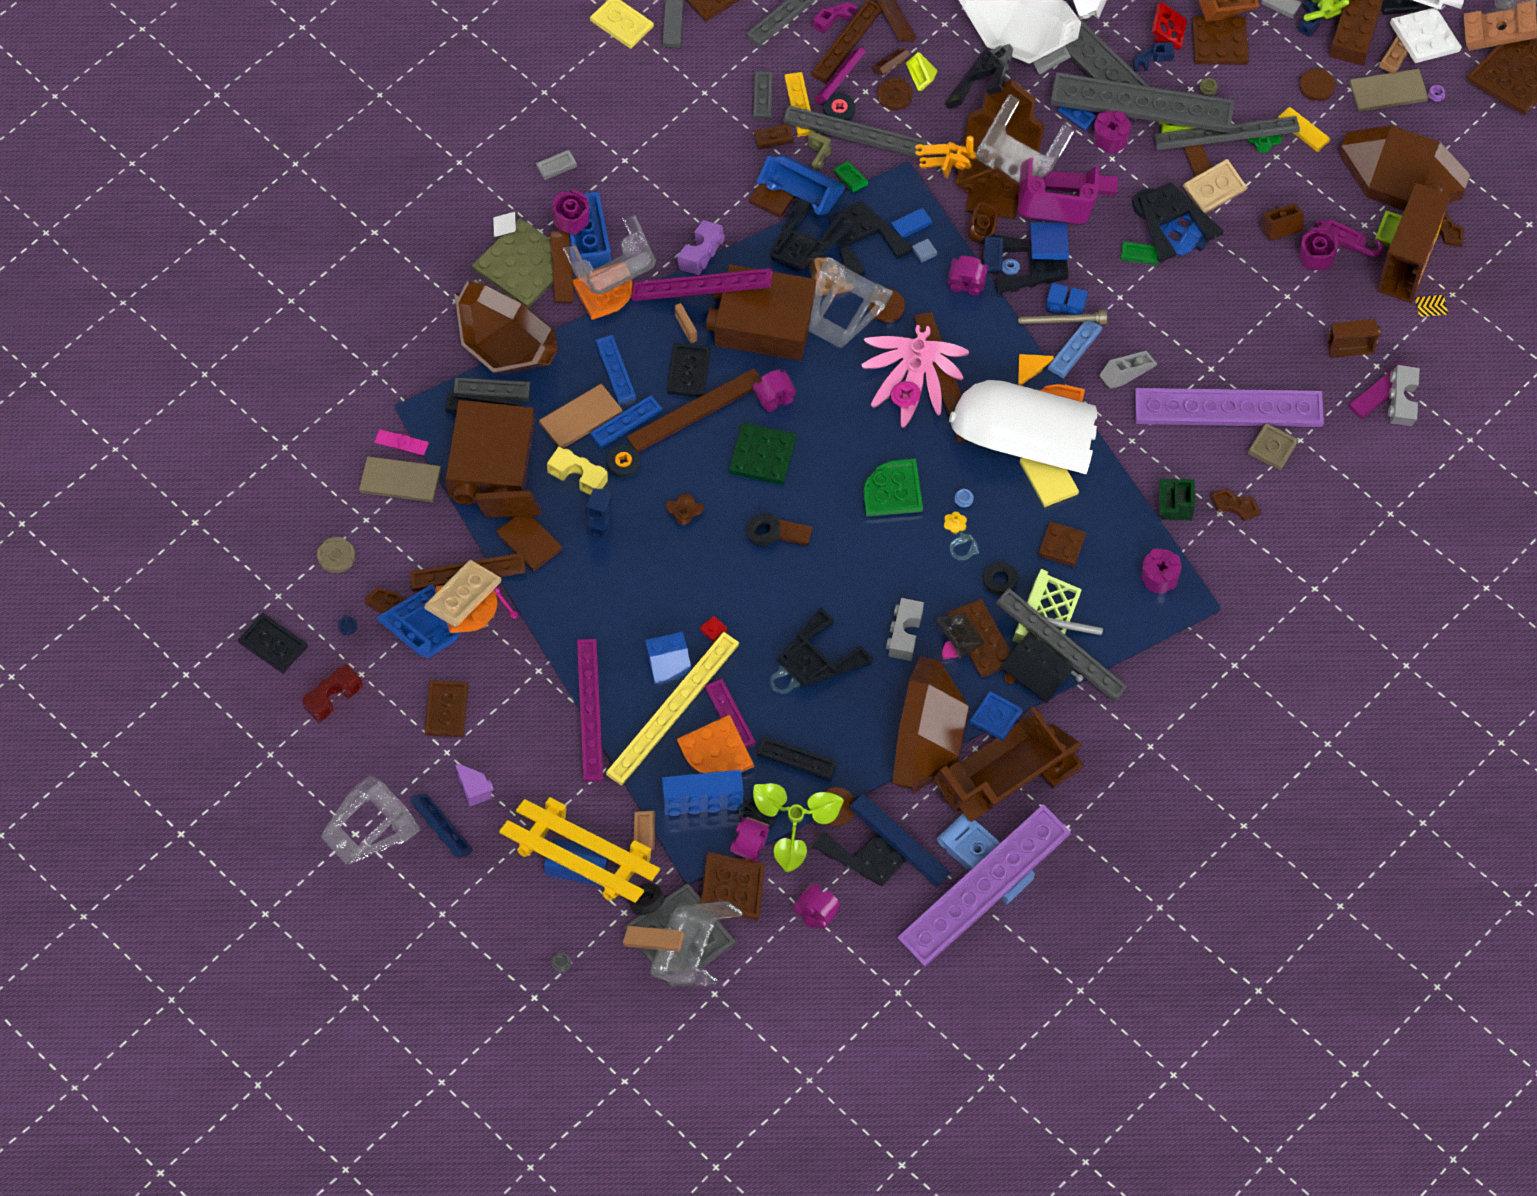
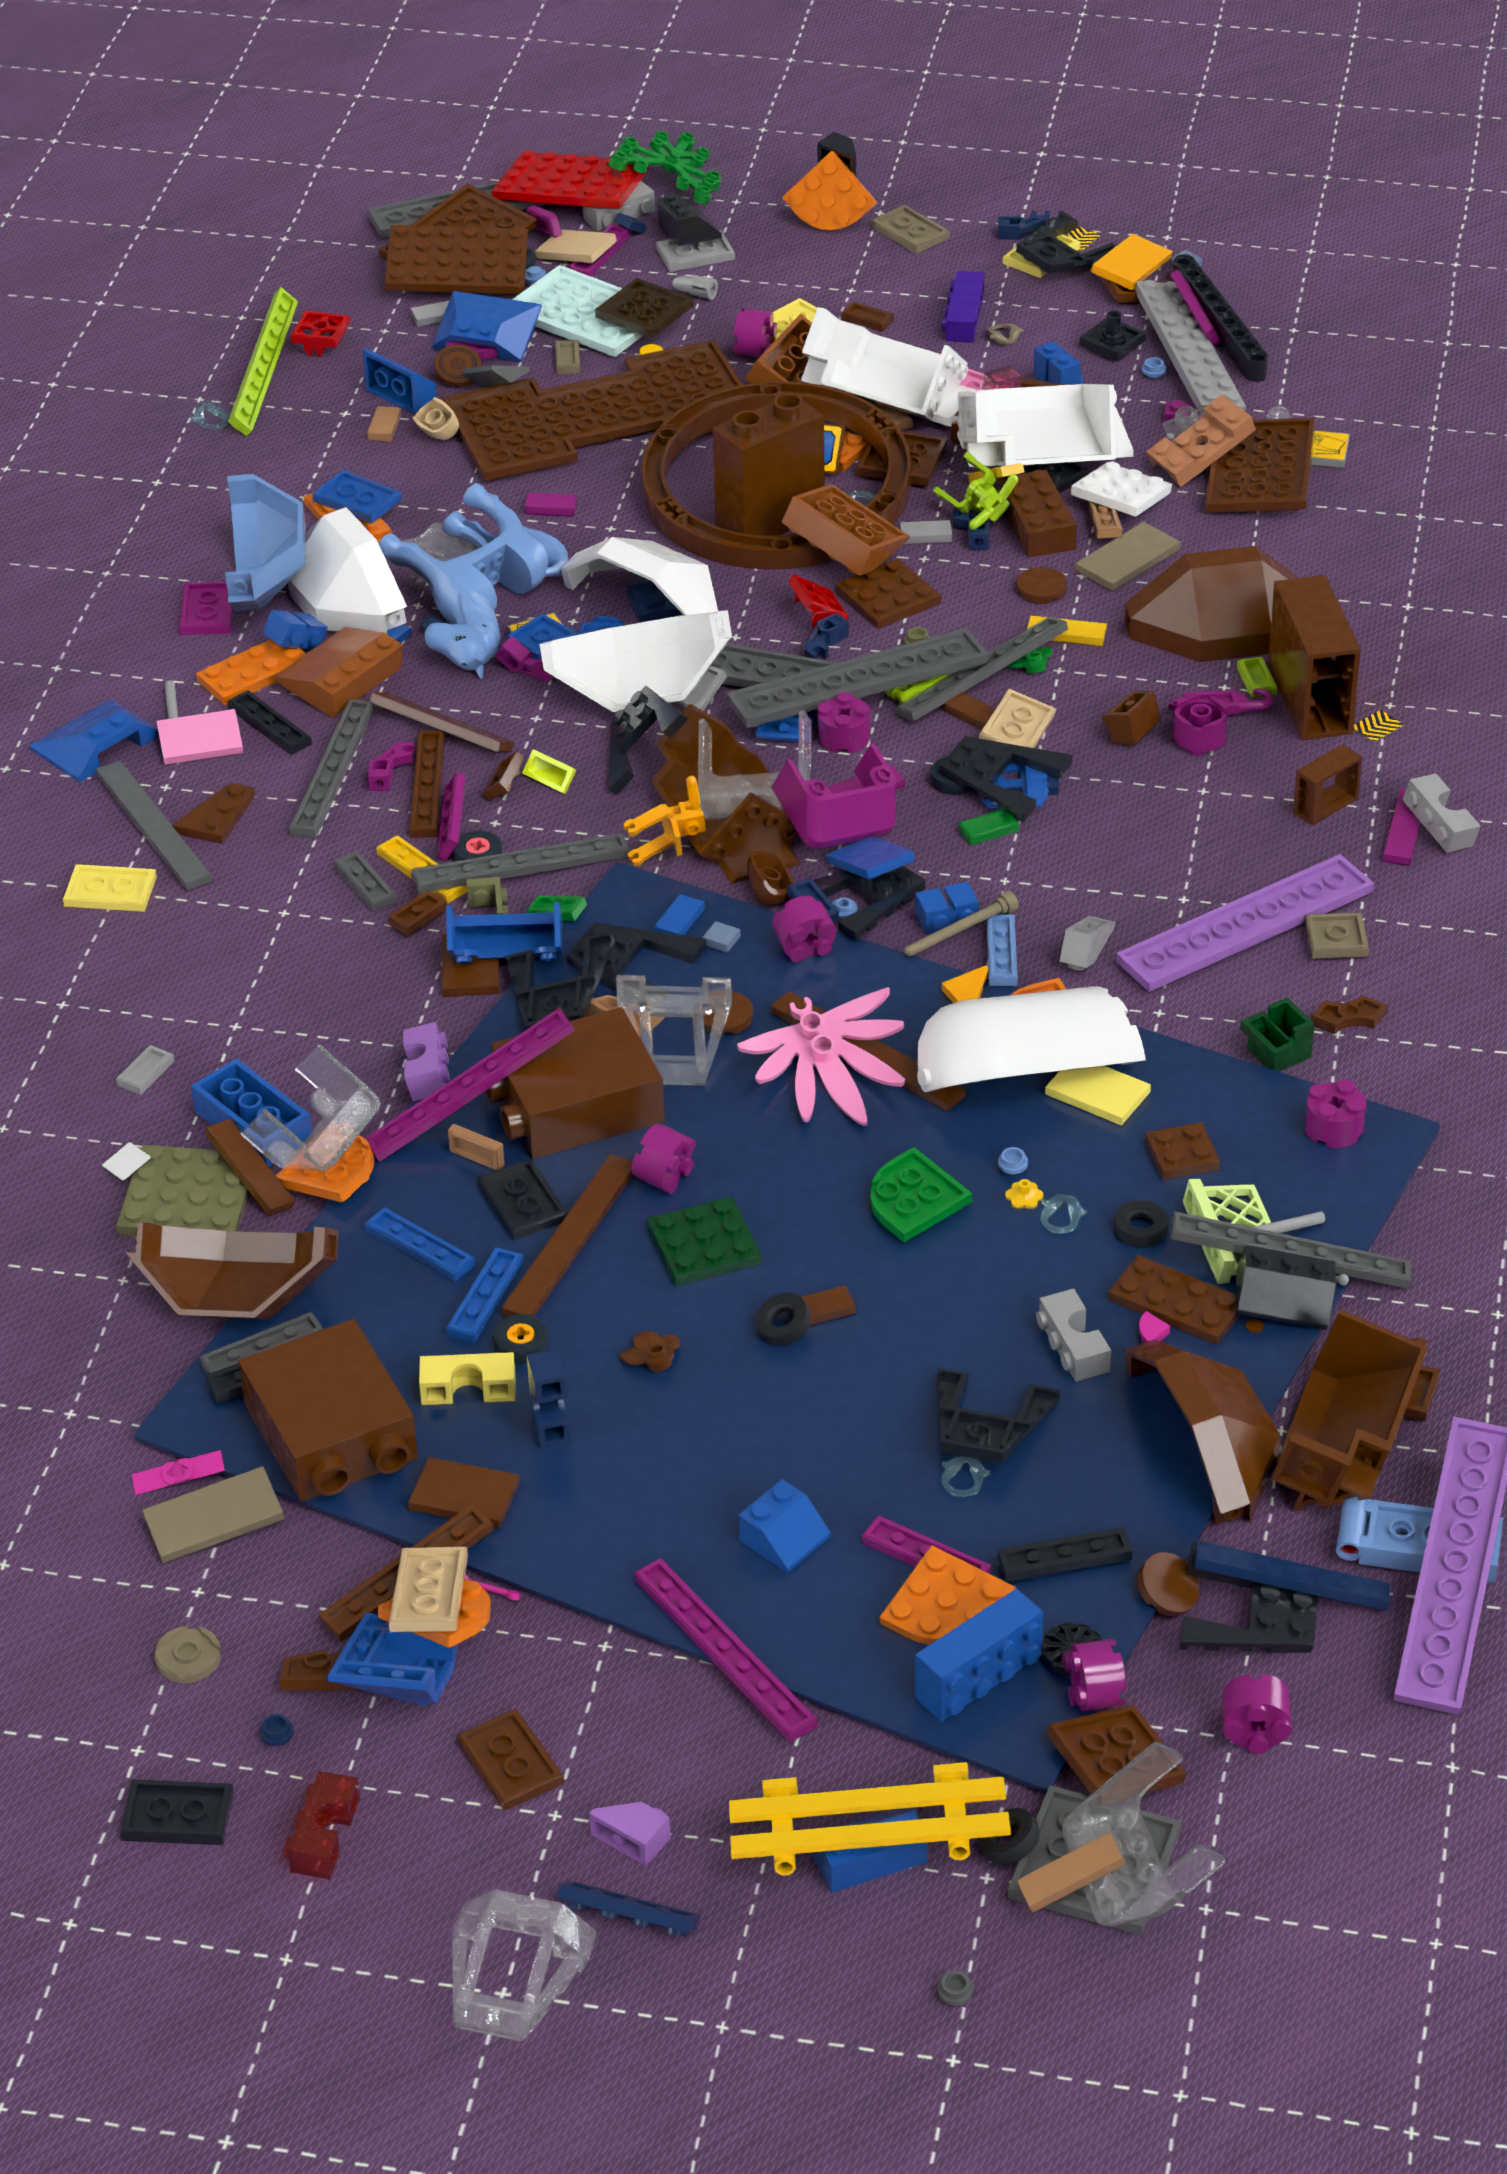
camera: 30 degrees left, 20 degrees down
(508, 504) = (406, 1452): reddish brown tile -> none
(571, 211) = (221, 1087): magenta brick -> none
(580, 416) = (417, 1317): medium nougat tile -> none
(645, 828) = (925, 1749): medium nougat tile -> none
(672, 708) = (841, 1587): light yellow plate -> none
(713, 629) = (814, 1466): red plate -> none
(822, 806) = (1154, 1586): lime plant -> none
(894, 94) = (536, 808): reddish brown tile -> none
(907, 388) = (832, 1081): dark pink gear -> none
(960, 634) = (1151, 1303): clear smoke slope -> none
(996, 716) = (1279, 1373): blue tile -> none
(1436, 89) = (1185, 534): medium lavender plate -> none

